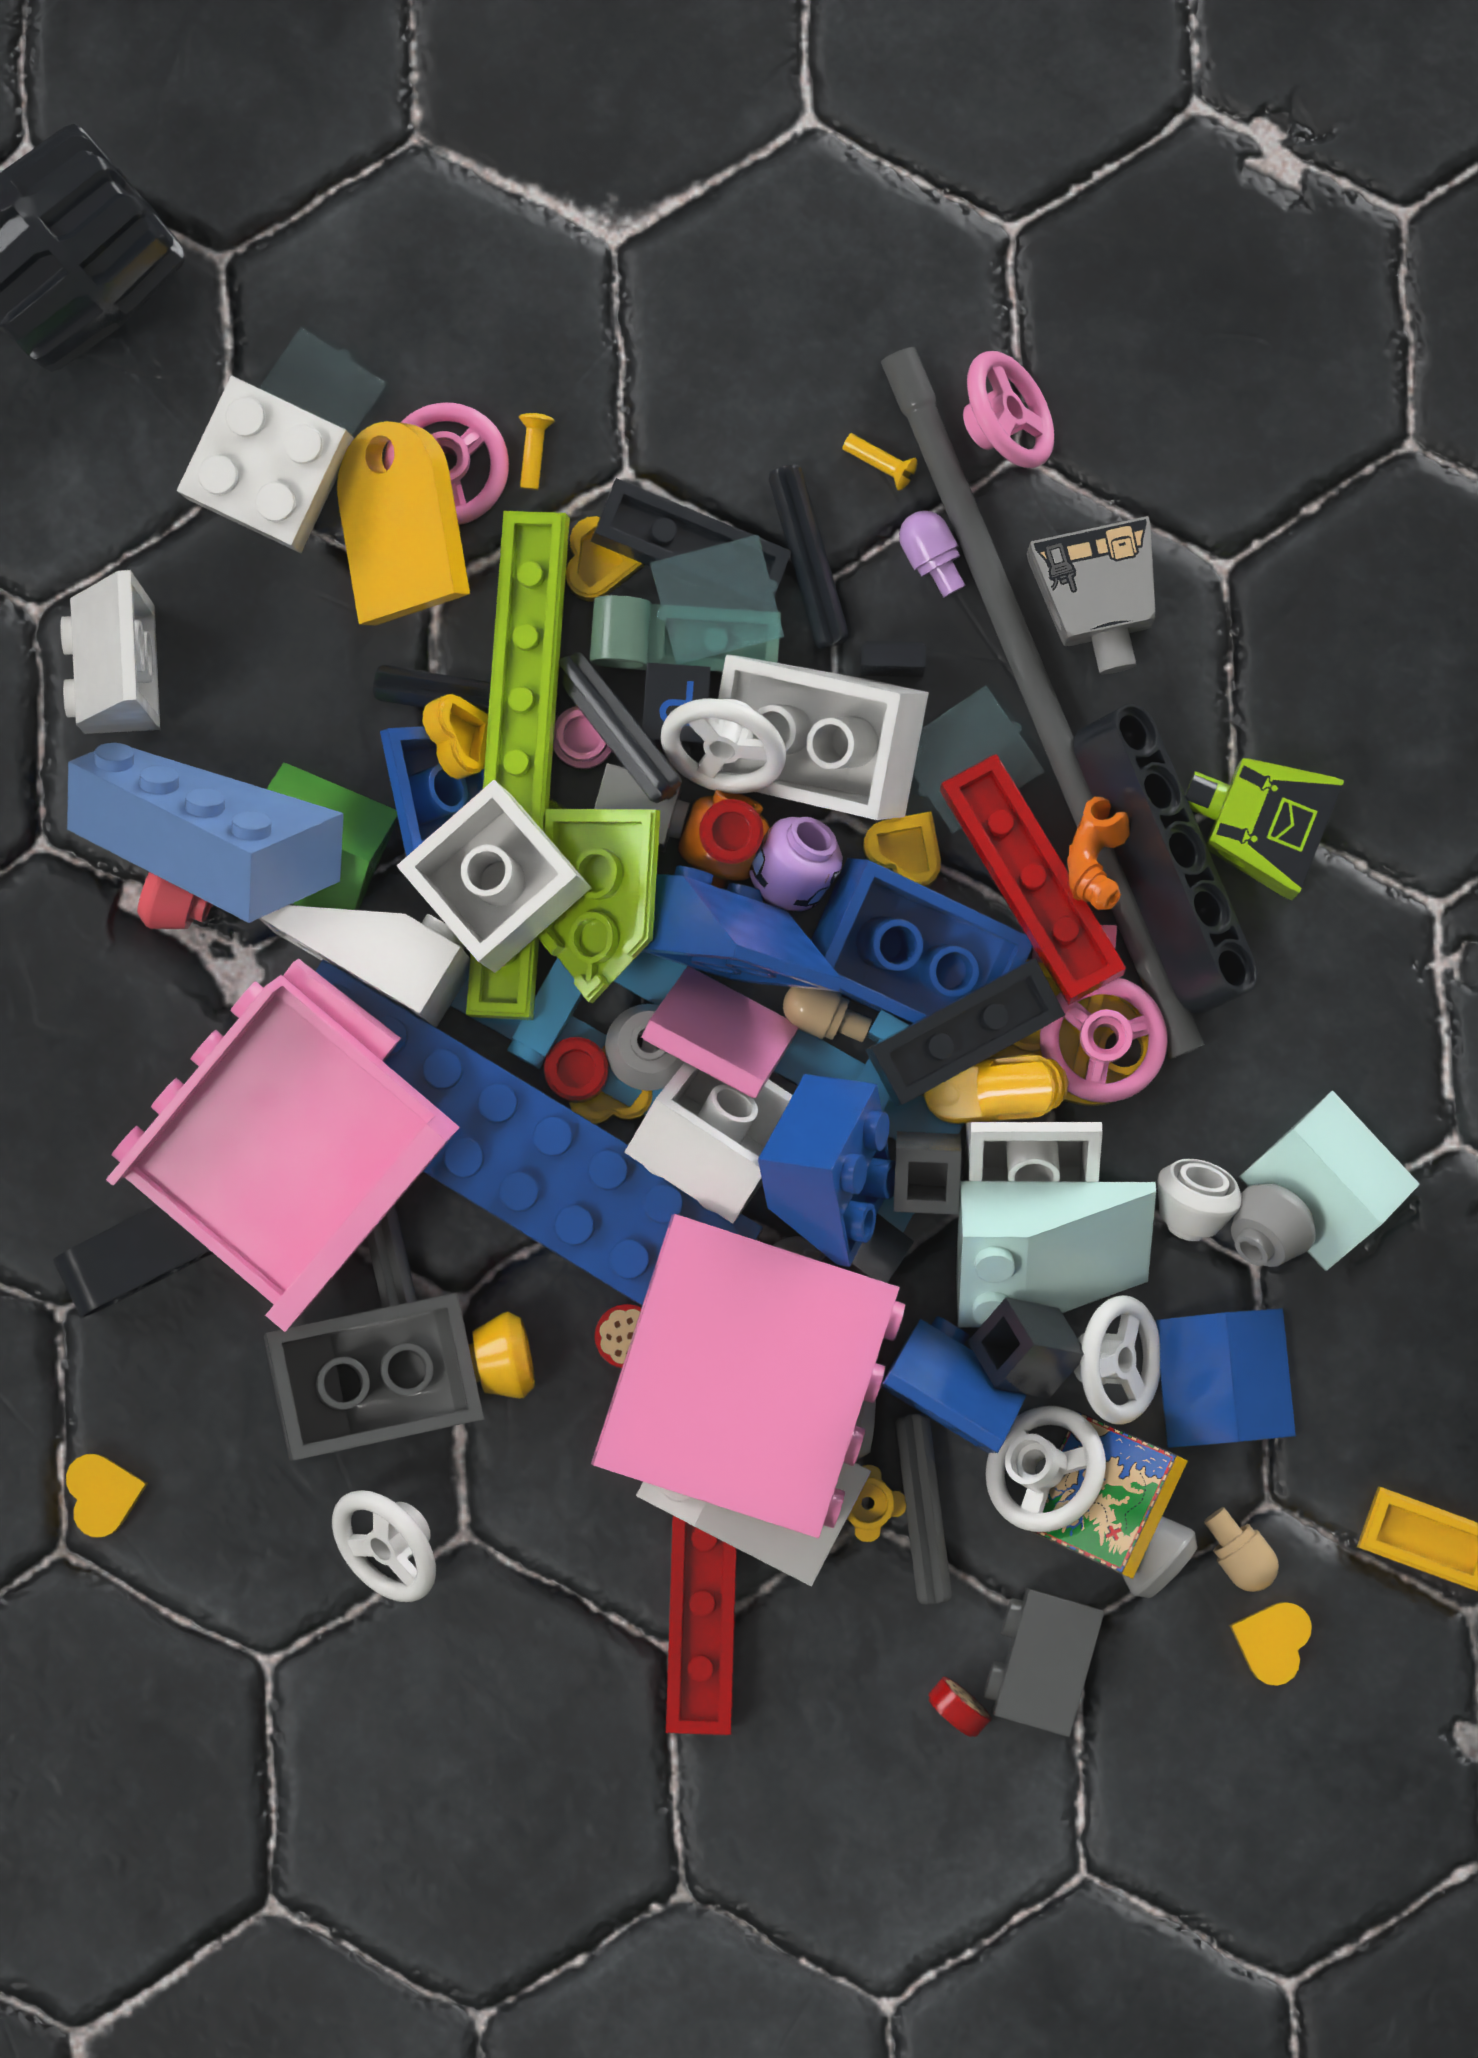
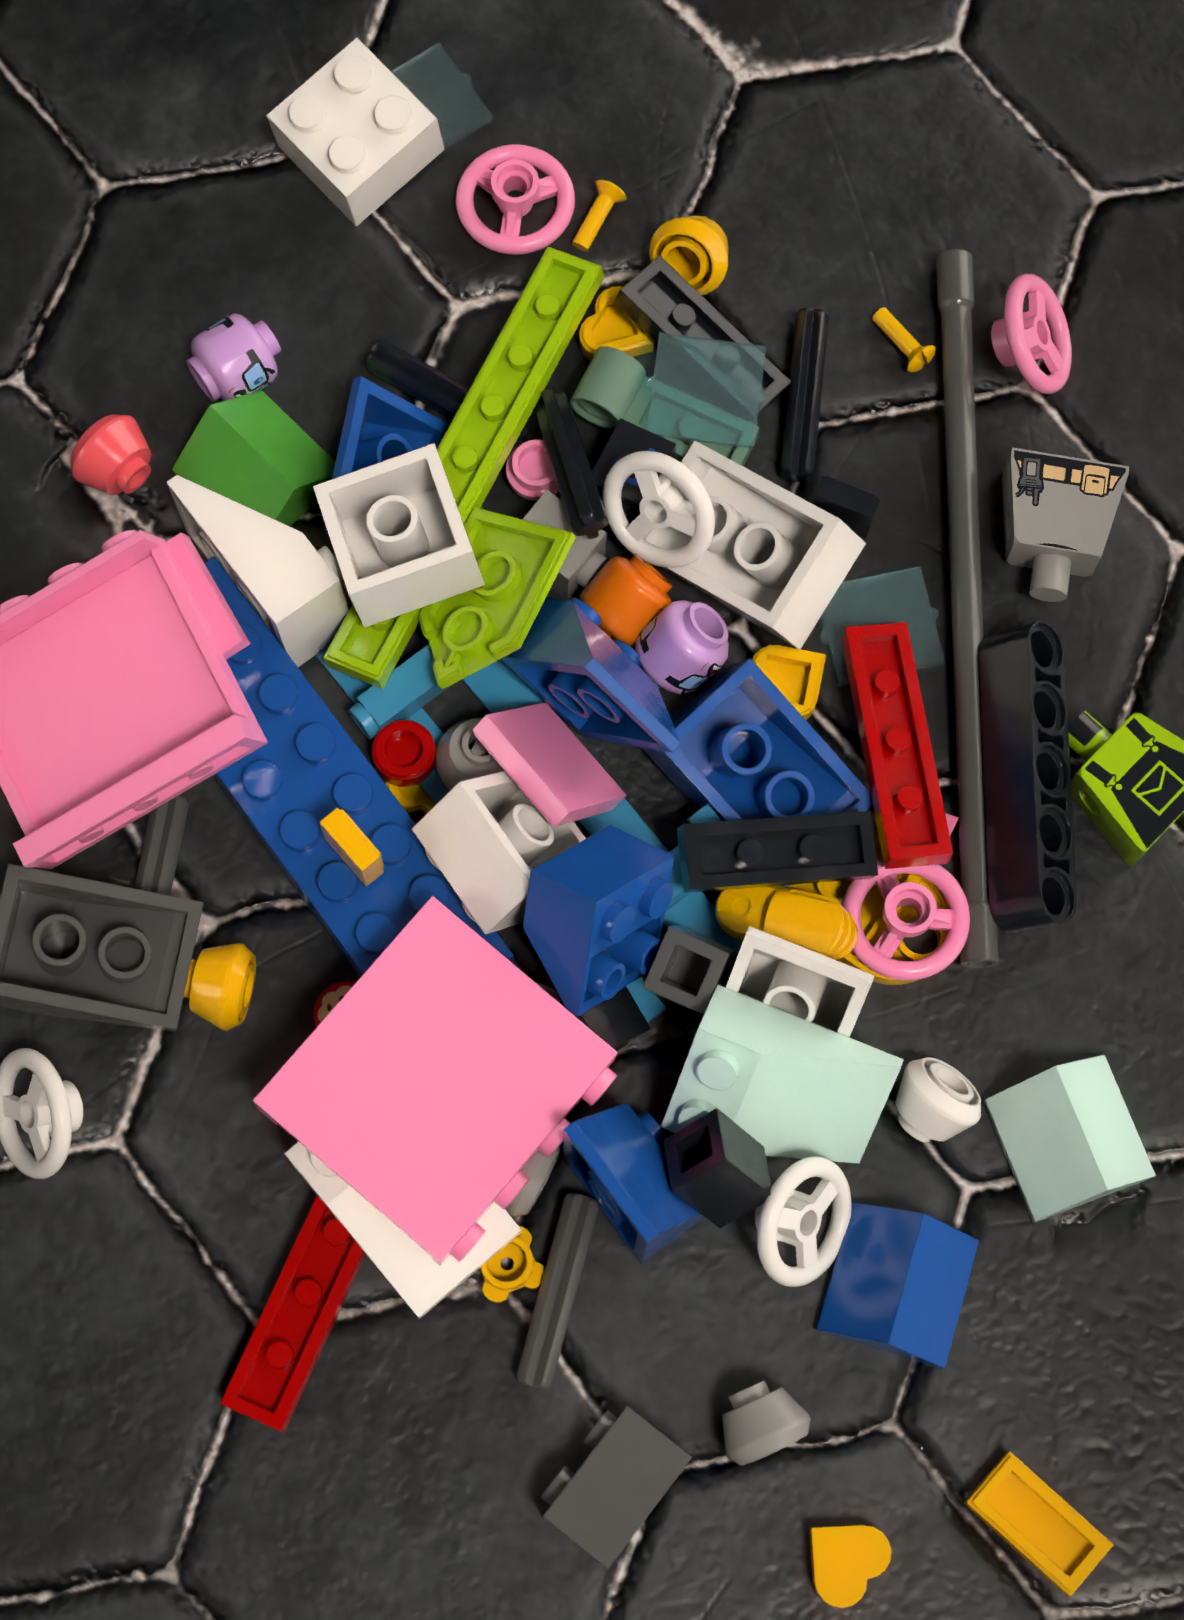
camera: 20 degrees right, 10 degrees down
(112, 657) = (151, 234): white slope -> none
(204, 830) = (159, 401): medium blue wedge -> none
(247, 742) = (234, 358): none -> lavender head
(399, 524) = (451, 224): yellow tile -> none
(459, 734) = (423, 413): yellow tile -> none
(578, 1192) = (352, 846): none -> yellow tile
(645, 455) = (694, 249): none -> yellow cone
(731, 831) = (634, 588): red tile -> none
(824, 1014) = (652, 791): tan cylinder -> none
(931, 549) = (918, 430): lavender cylinder -> none
(959, 1707) = (513, 1497): red tile -> none
(1020, 1457) = (675, 1271): white piece -> none
(1086, 875) = (971, 723): orange piece -> none
(1129, 1504) = (738, 1345): tile -> none
(1242, 1552) = (850, 1461): tan cylinder -> none
(1272, 1225) = (999, 1153): light grey cone -> none

